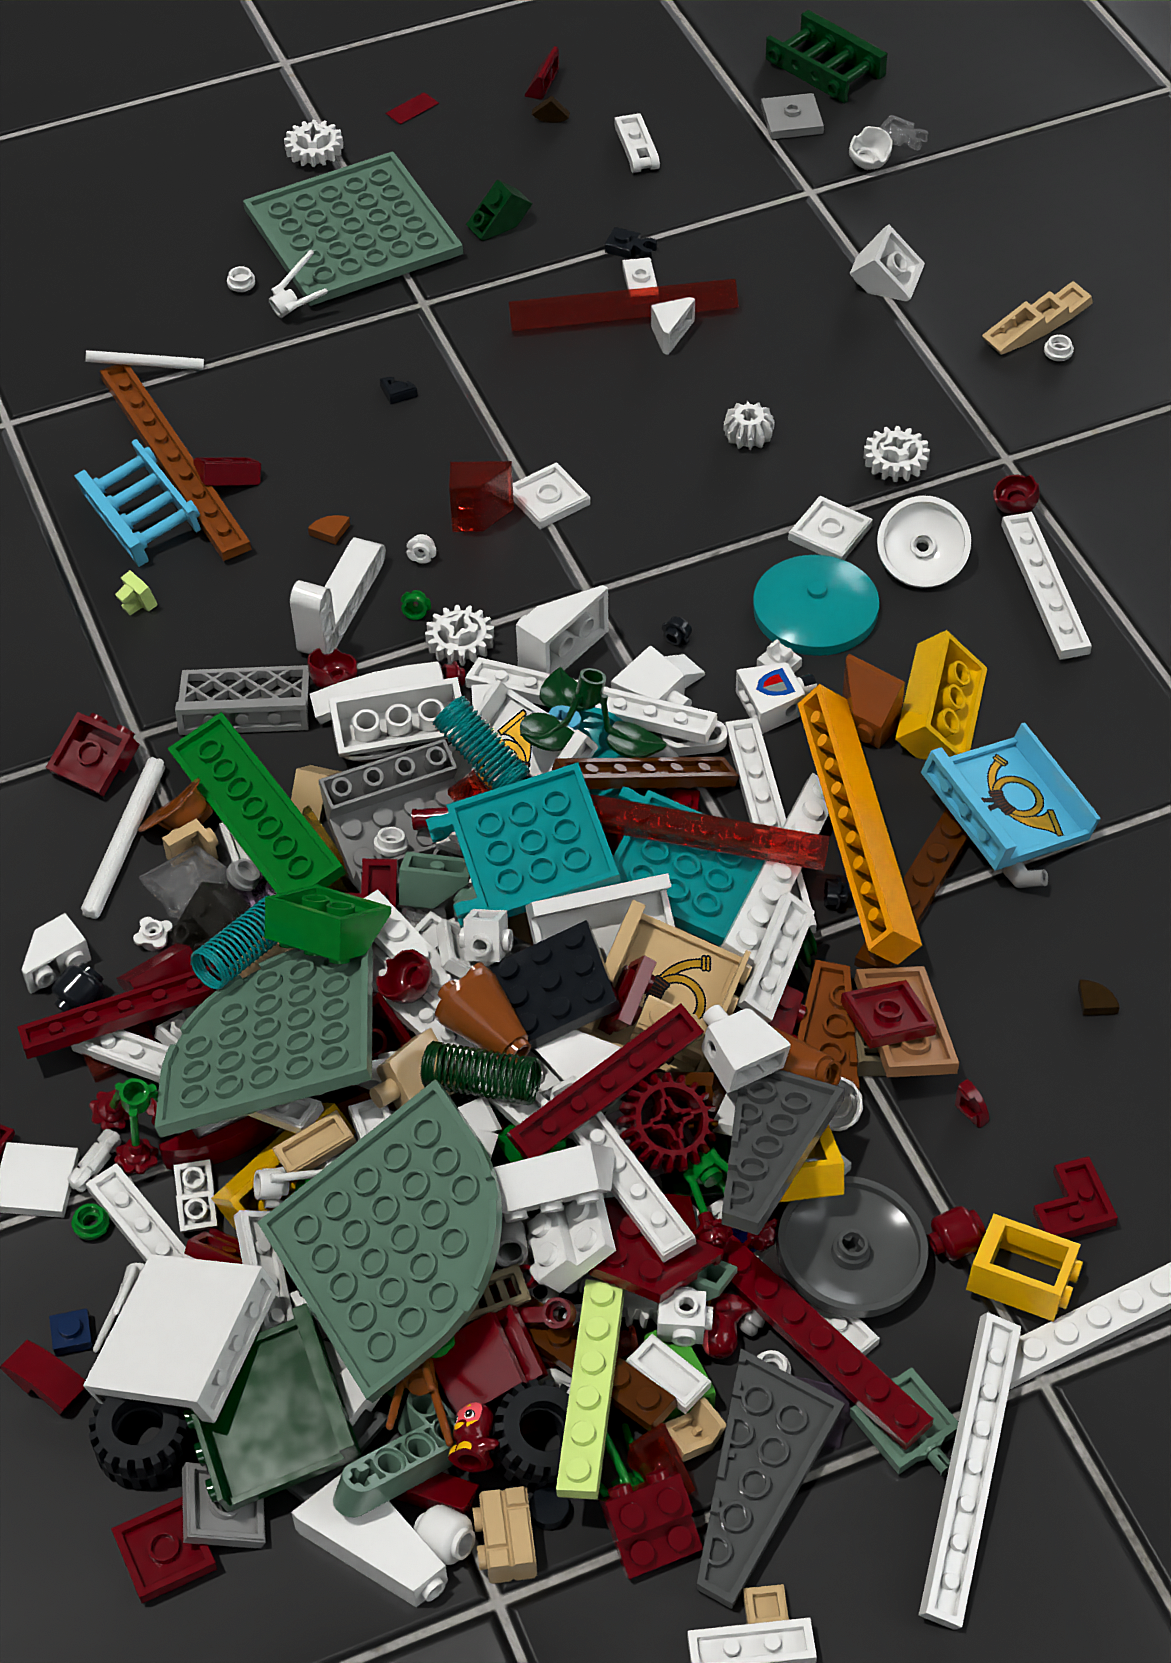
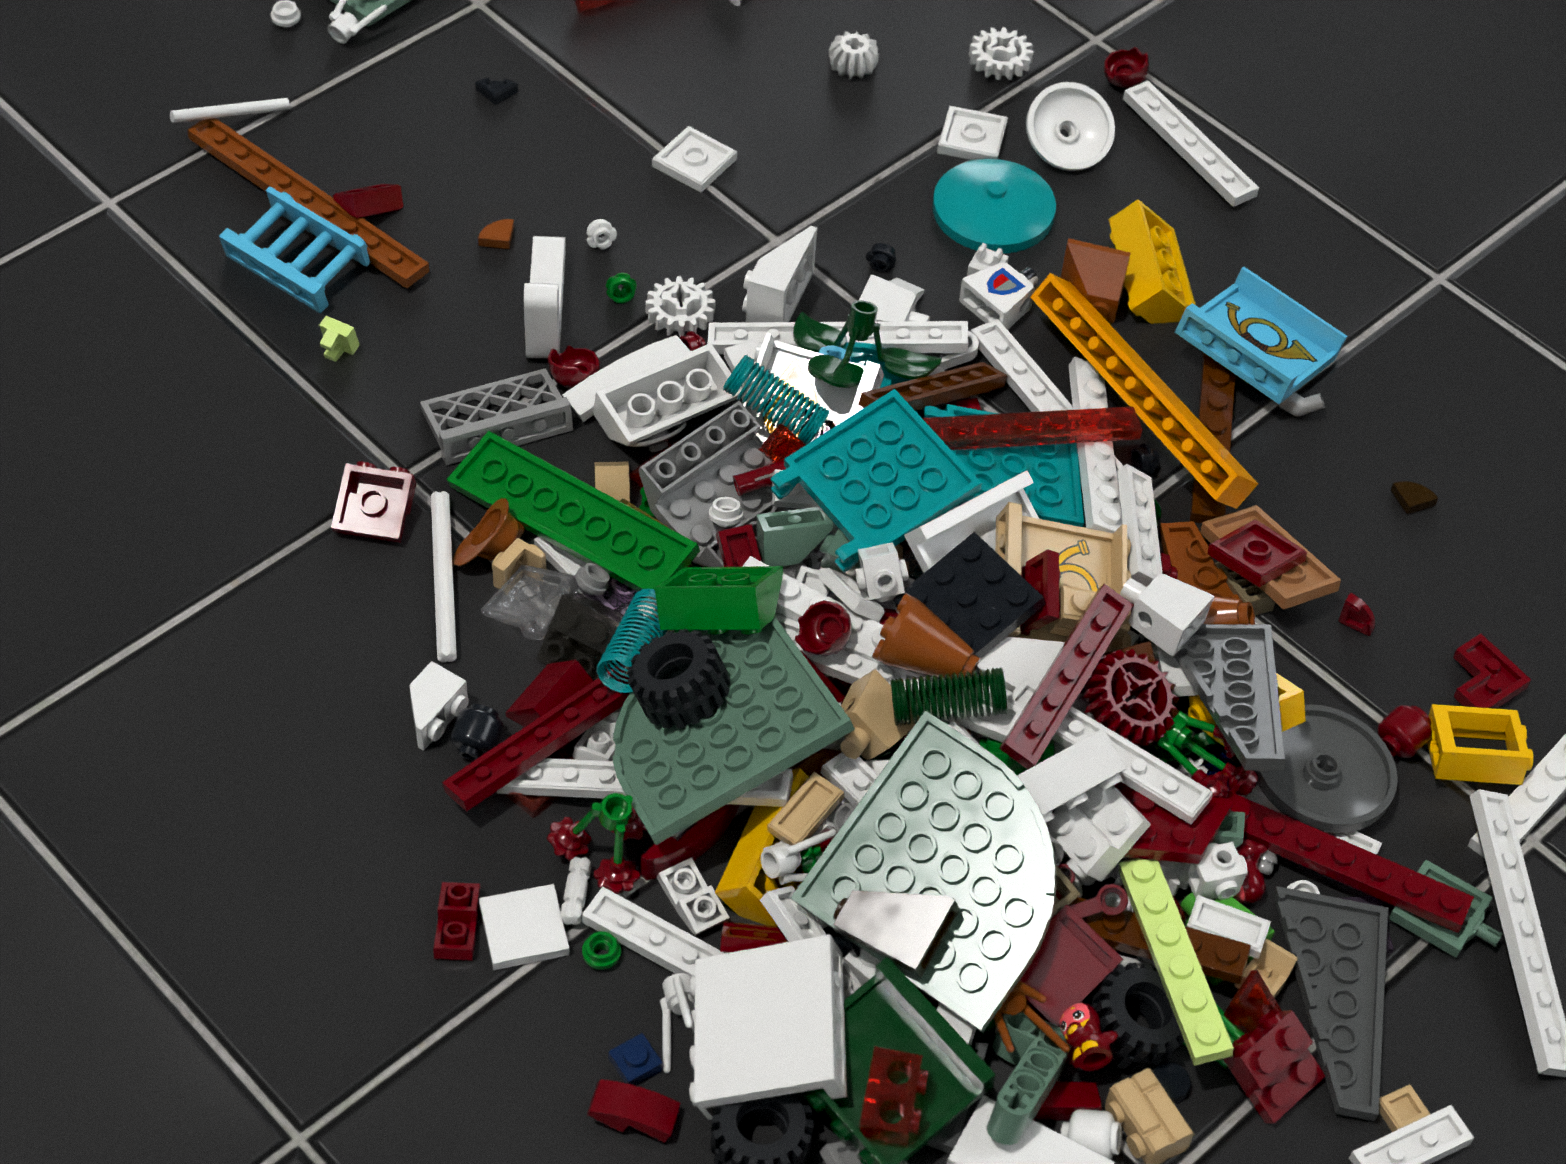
camera: 25 degrees left, 0 degrees up
(156, 940) = (525, 667): white plate -> none
(245, 1432) = (885, 1095): none -> clear red brick
(248, 988) = (678, 678): none -> black tyre
(328, 1278) = (897, 925): none -> slope
(480, 494) = (635, 169): clear red slope -> none

